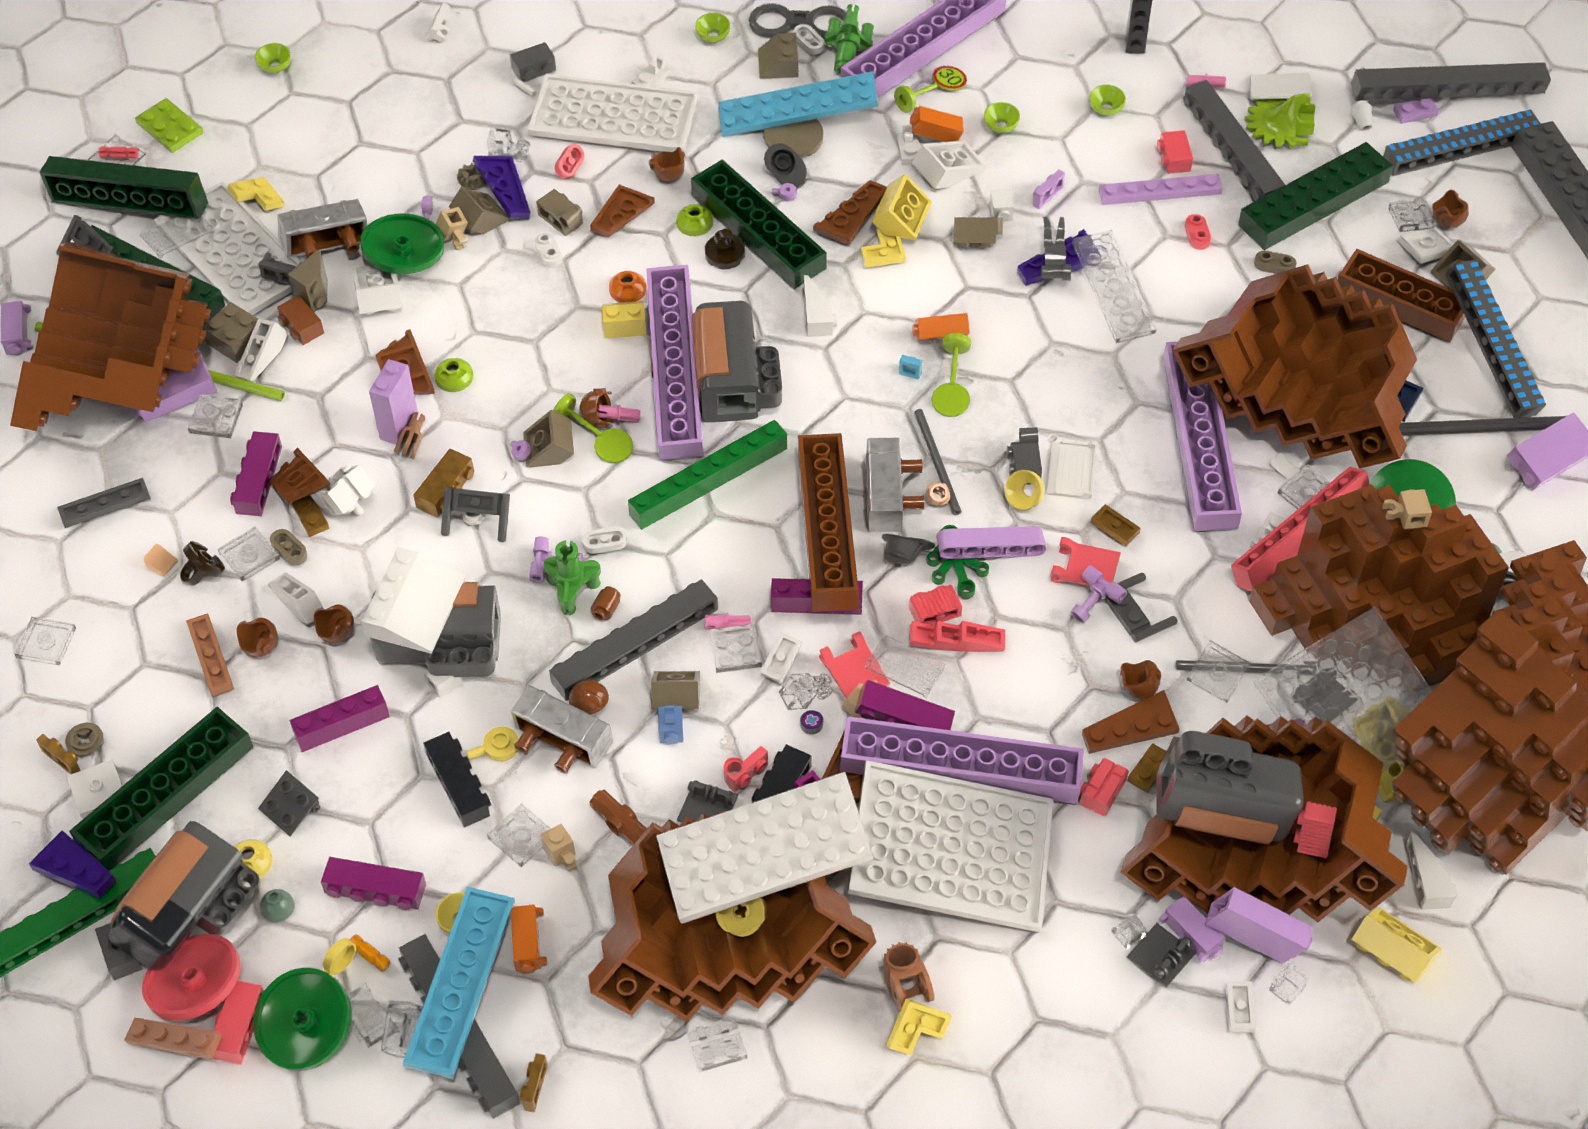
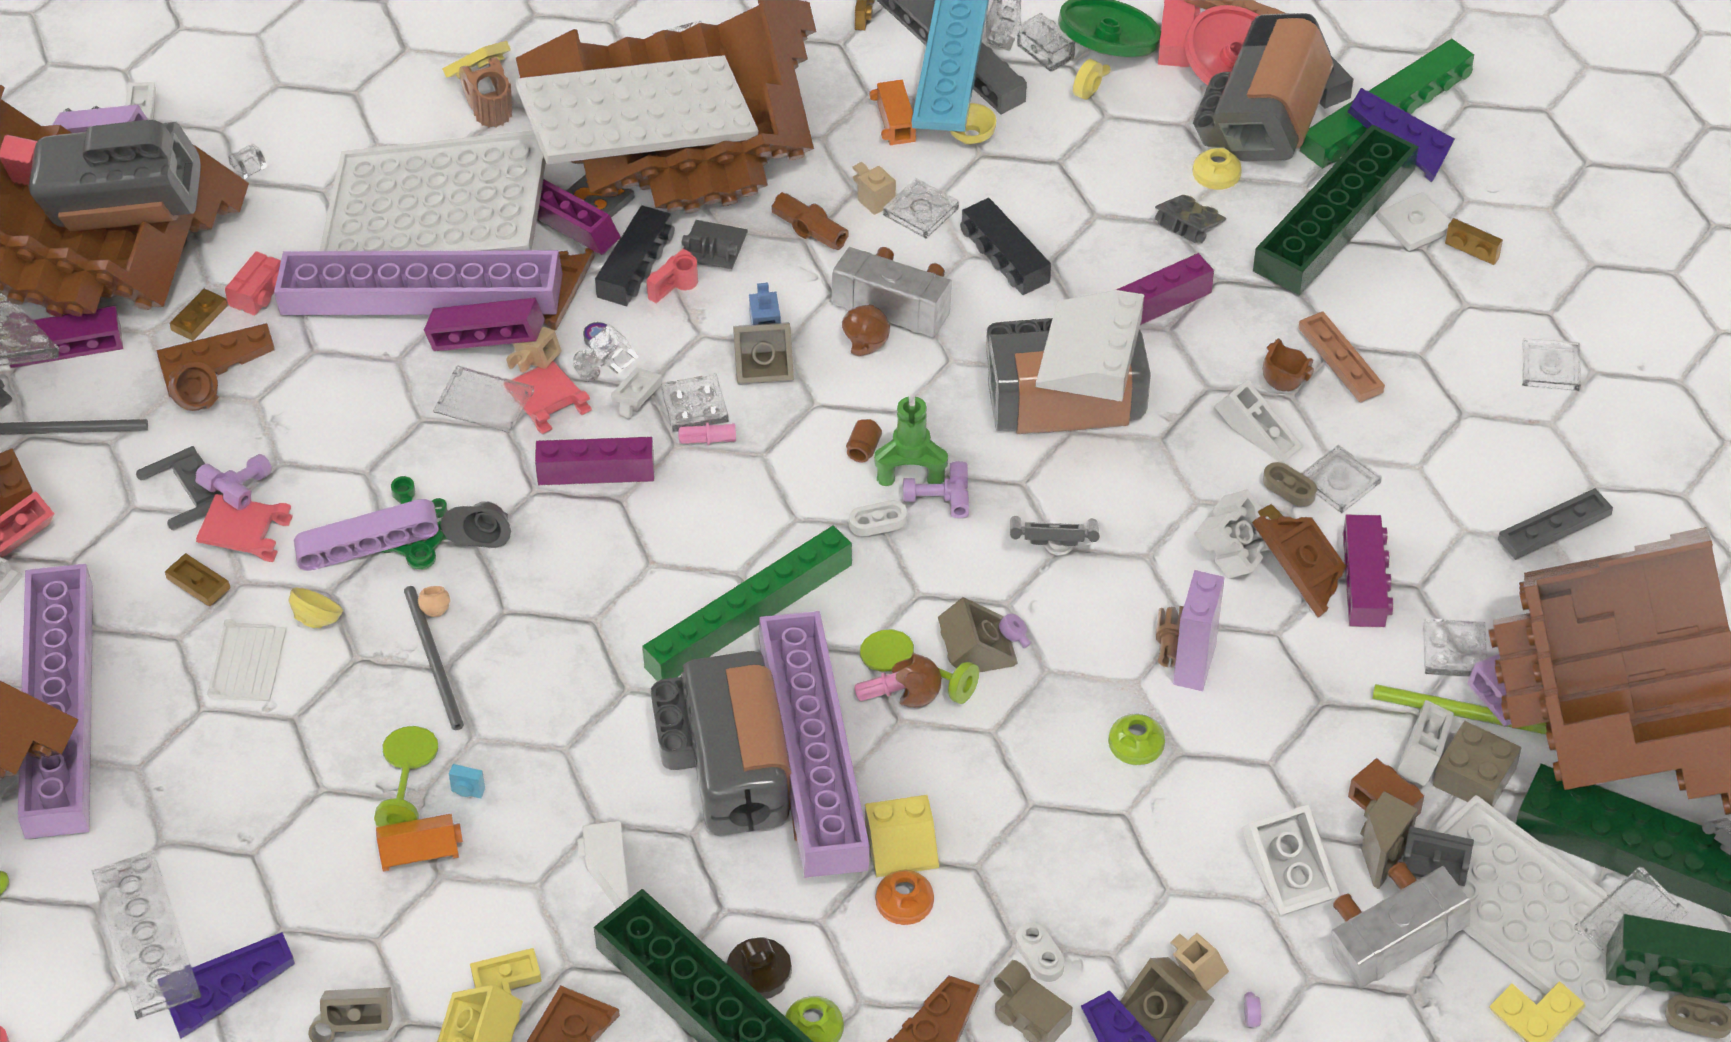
camera: 175 degrees right, 5 degrees down
(84, 731) = (1445, 257): dark tan gear -> none
(159, 560) = (1450, 461): light nougat slope -> none
(201, 563) = (1389, 445): dark brown tile -> none
(277, 905) = (1172, 129): sand green brick -> none
(334, 623) = (1196, 387): dark orange cap -> none
(370, 953) = (1060, 97): light orange axle -> none
(373, 883) = (1072, 147): magenta brick -> none
(402, 243) = (1274, 897): green dish -> none
(407, 352) = (1211, 739): dark orange wing -> none
(450, 472) = (1106, 574): pearl gold brick -> none
(497, 745) = (969, 290): light yellow piece -> none
(635, 638) = (819, 402): dark grey brick -> none
(827, 523) = (581, 521): dark orange brick -> none
(885, 484) = (505, 595): flat silver piece -> none
(935, 605) = (443, 461): coral brick -> none
(962, 637) = (407, 433): coral slope -> none
(1025, 453) = (310, 655): dark grey hinge -> none
(1055, 254) = (230, 972): dark grey flag -> none
(1162, 954) = (217, 138): dark grey hinge -> none
(1218, 671) = (96, 410): clear plate -> none

